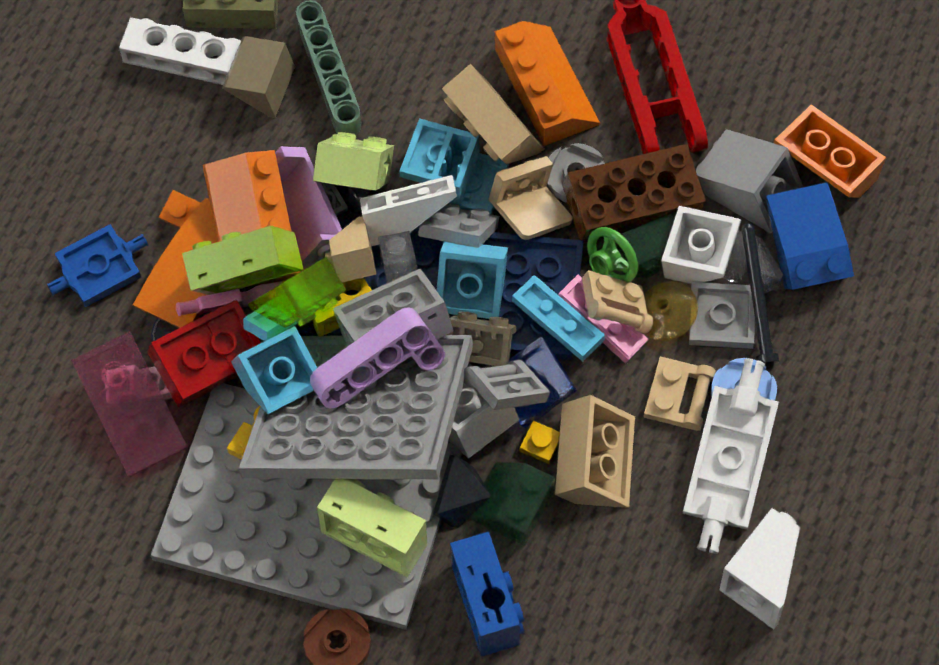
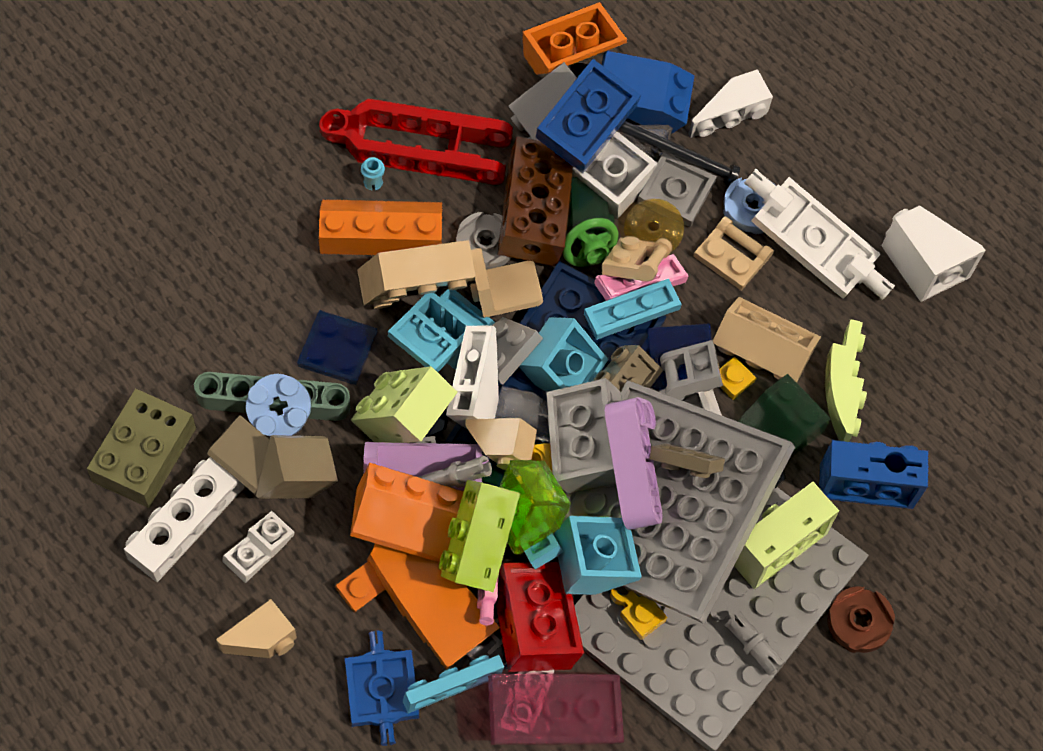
camera: 75 degrees left, 0 degrees up
(107, 153) = (260, 634): none -> tan slope
(116, 309) = (451, 683): none -> medium azure plate
(194, 122) = (259, 546): none -> white slope
(259, 106) = (296, 467): none -> dark tan slope
(261, 546) = (755, 643): none -> light grey pin
(301, 60) = (262, 396): none -> light blue plate
(304, 228) = (460, 472): none -> light grey pin
(390, 397) = (675, 457): none -> dark tan plate
(404, 99) = (337, 347): none -> clear blue plate
(569, 543) = (842, 385): none -> yellowish green slope
(593, 48) = (373, 170): none -> medium azure pin
(726, 185) = (587, 116): none -> blue piece
(853, 329) = (738, 100): none -> white slope

